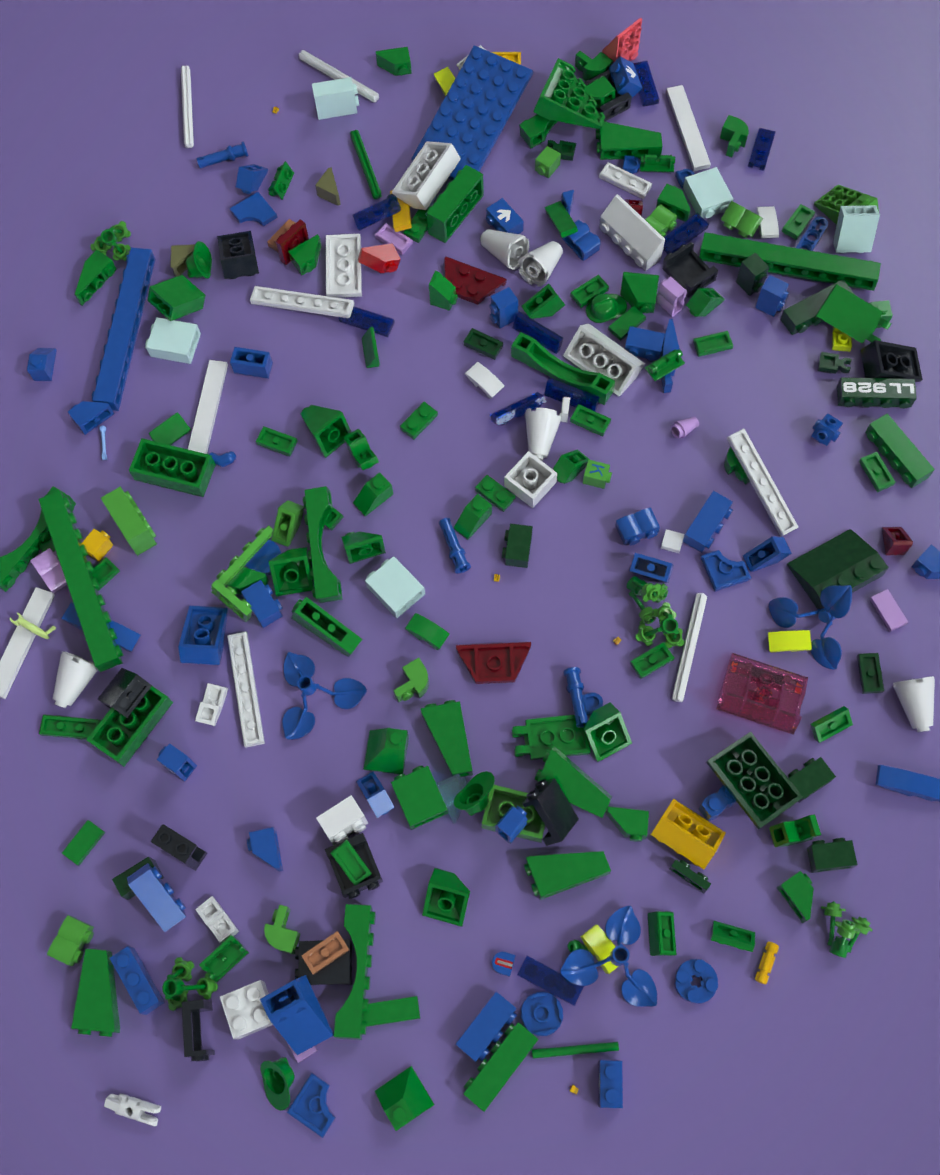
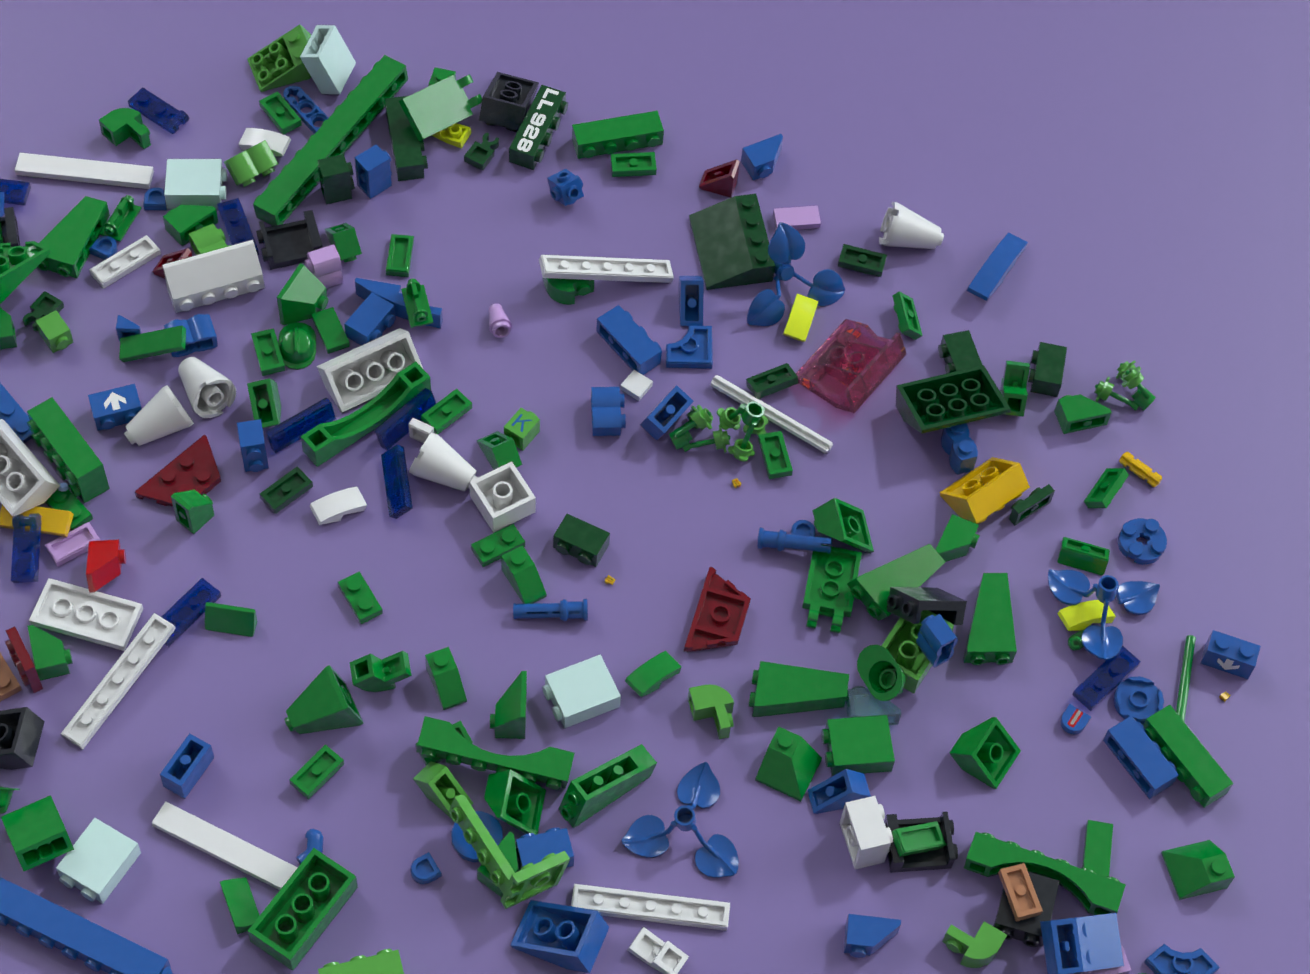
camera: 80 degrees left, 10 degrees down
(229, 533) = (425, 869): none -> blue tile
(719, 637) = (772, 381): none -> dark green plate

